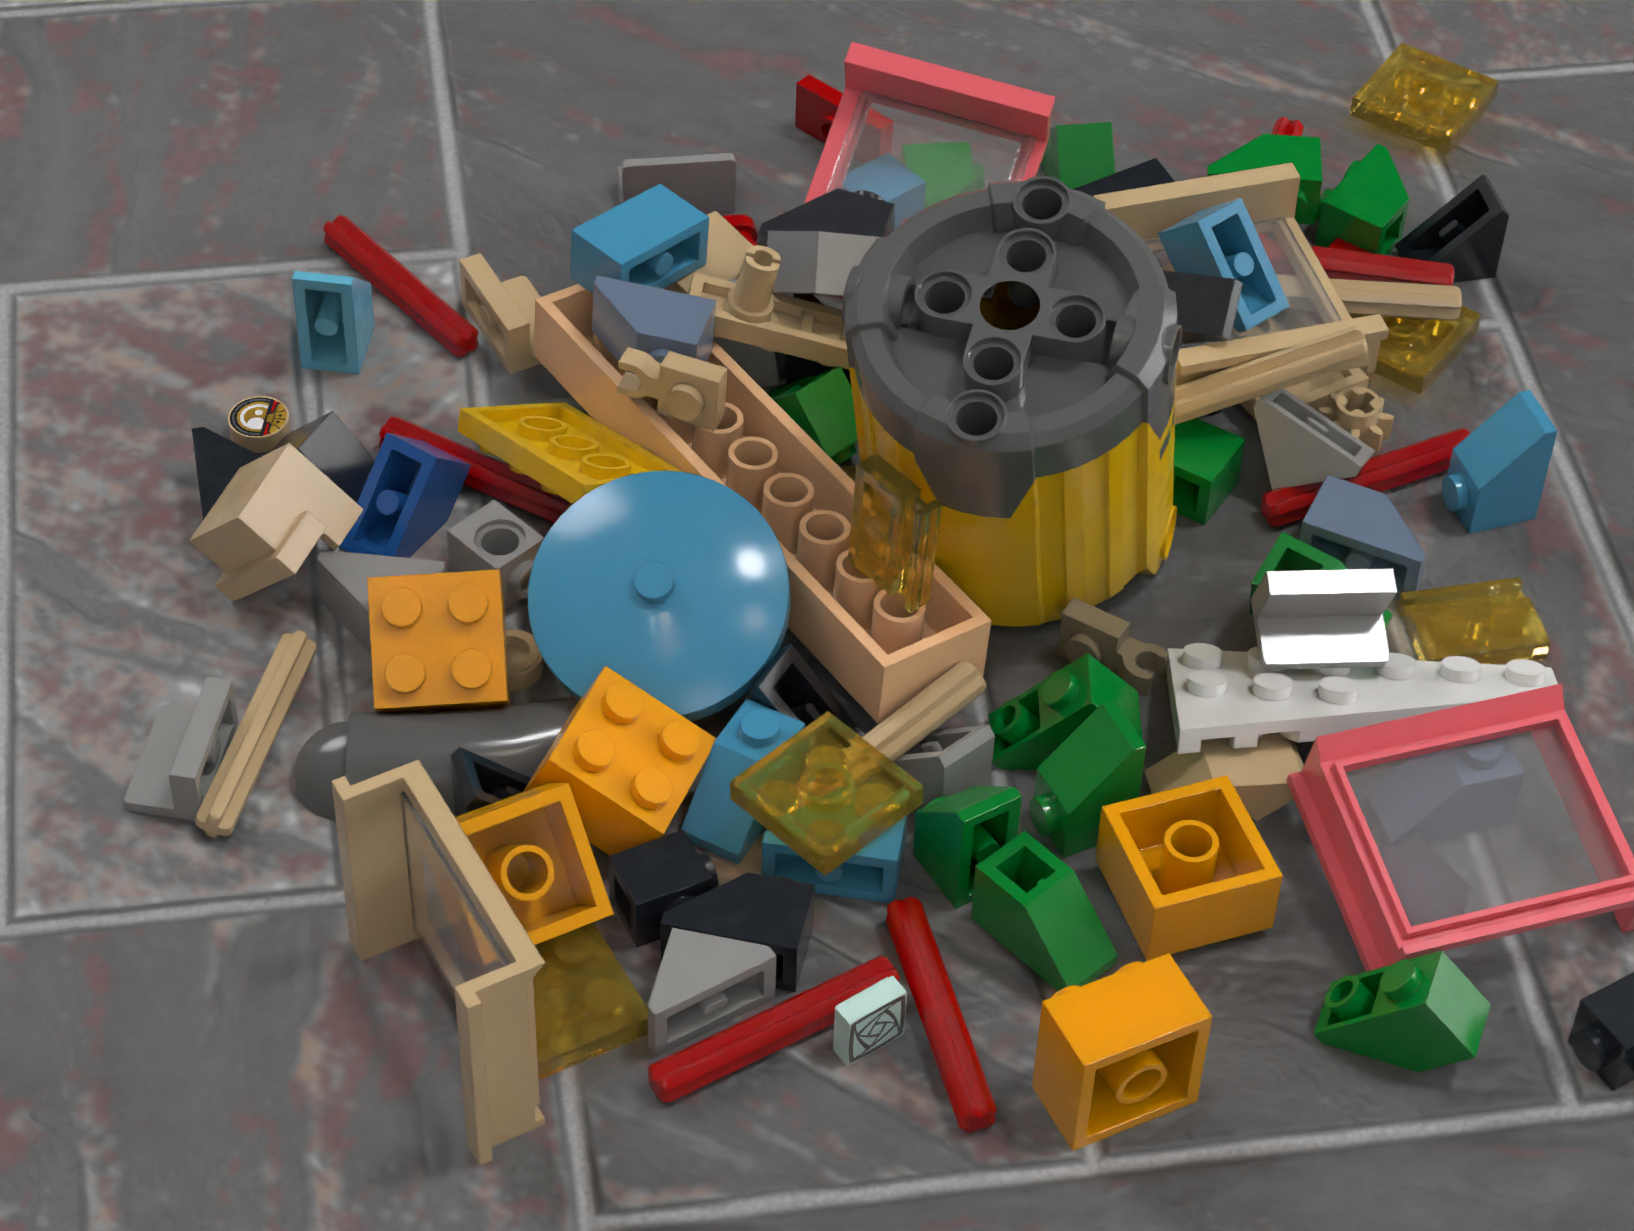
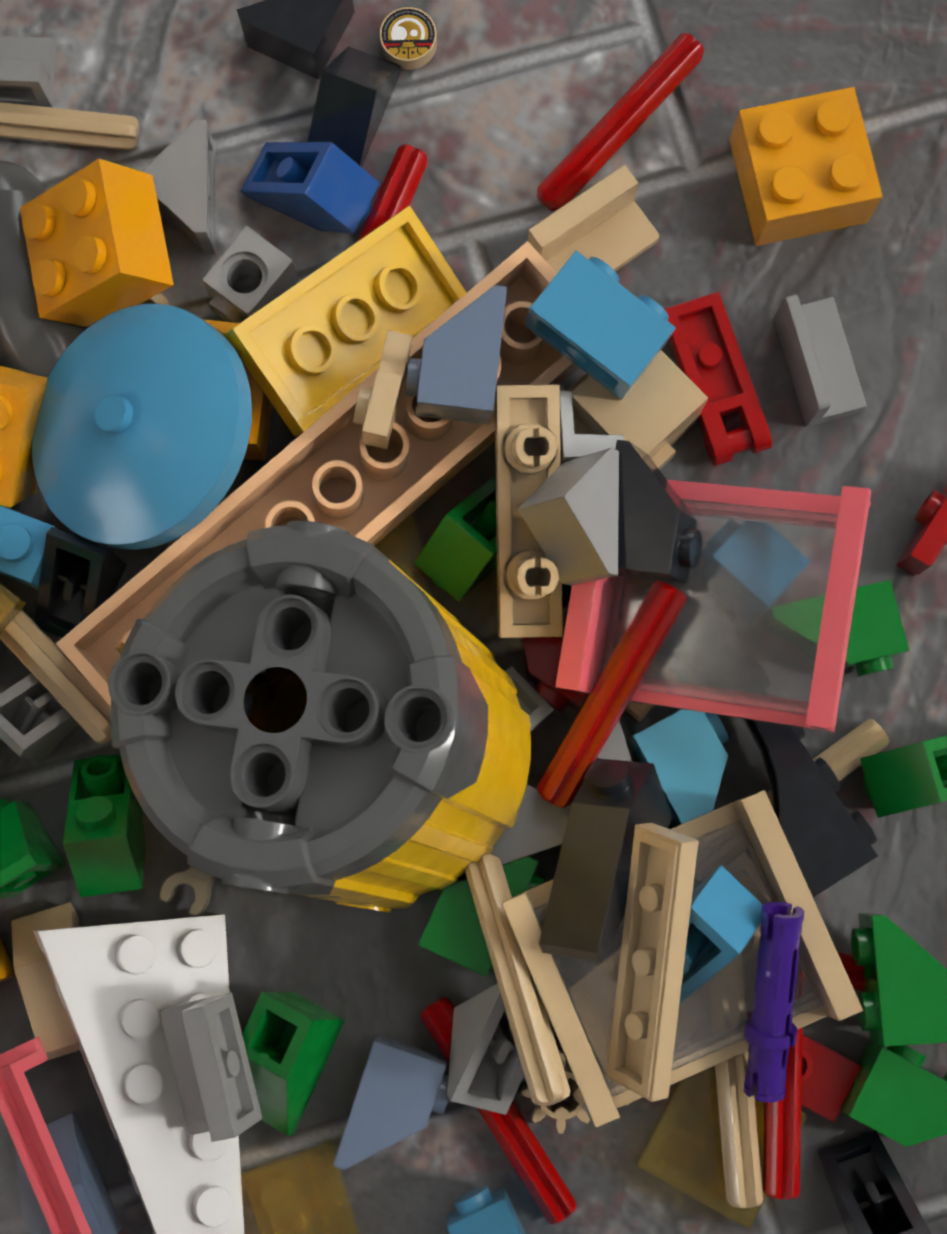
camera: 85 degrees right, 35 degrees up
(272, 521) = (224, 68): tan plate -> none
(333, 321) = (539, 65): medium azure slope -> none
(488, 161) = (805, 166): none -> light orange brick
(1269, 279) = (652, 960): none -> tan tile
(1302, 231) = (771, 1025): none -> dark purple pin

